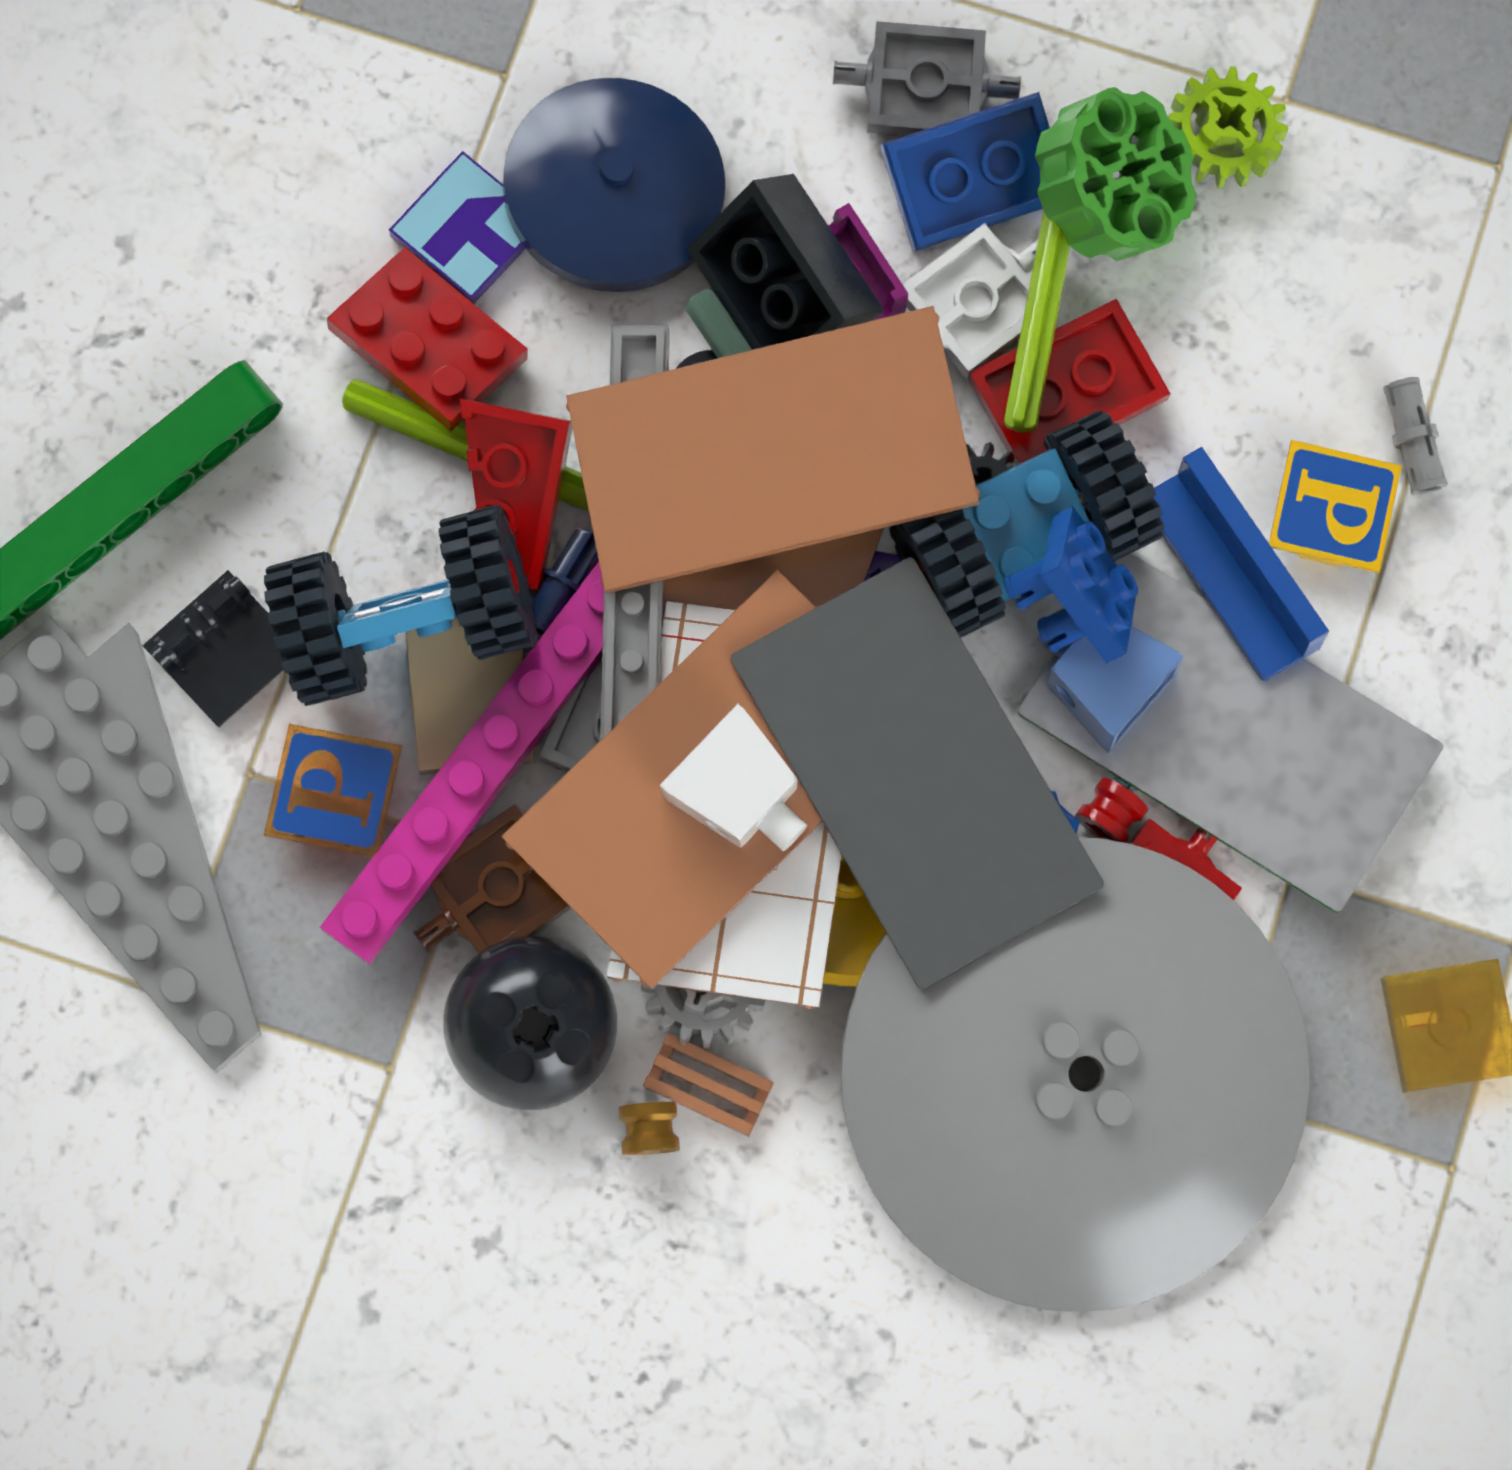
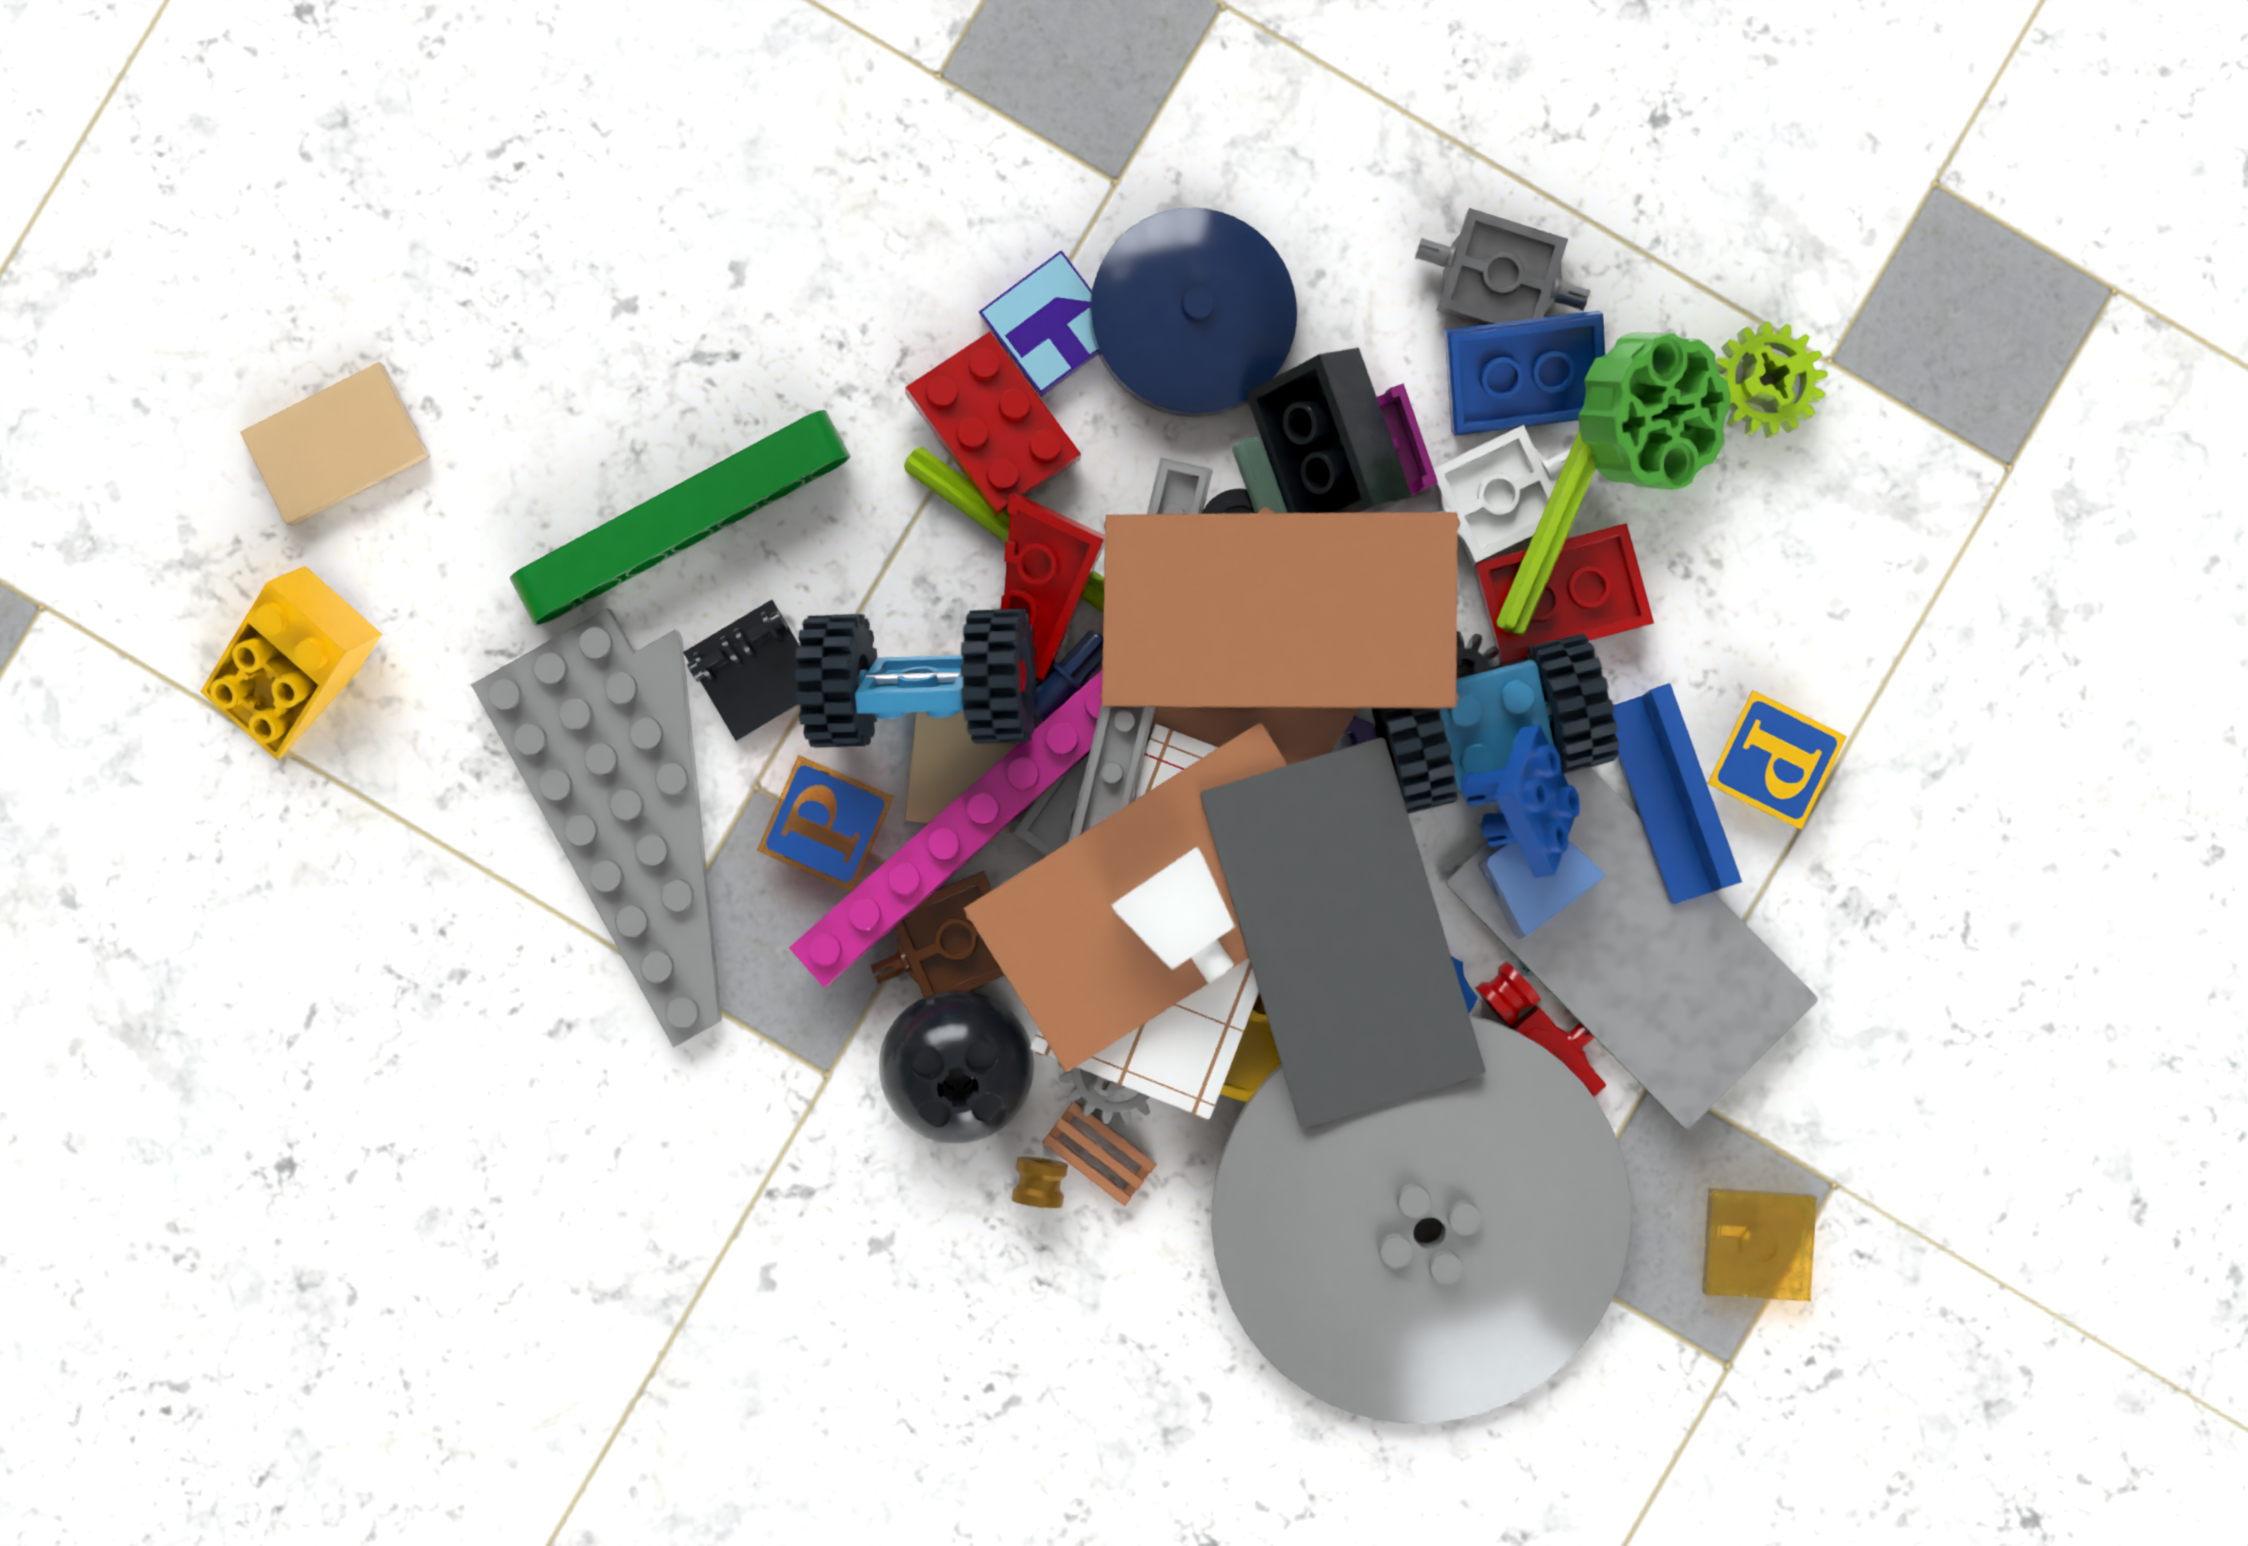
camera: 15 degrees right, 10 degrees up
(1415, 435) = (1866, 708): light grey pin -> none

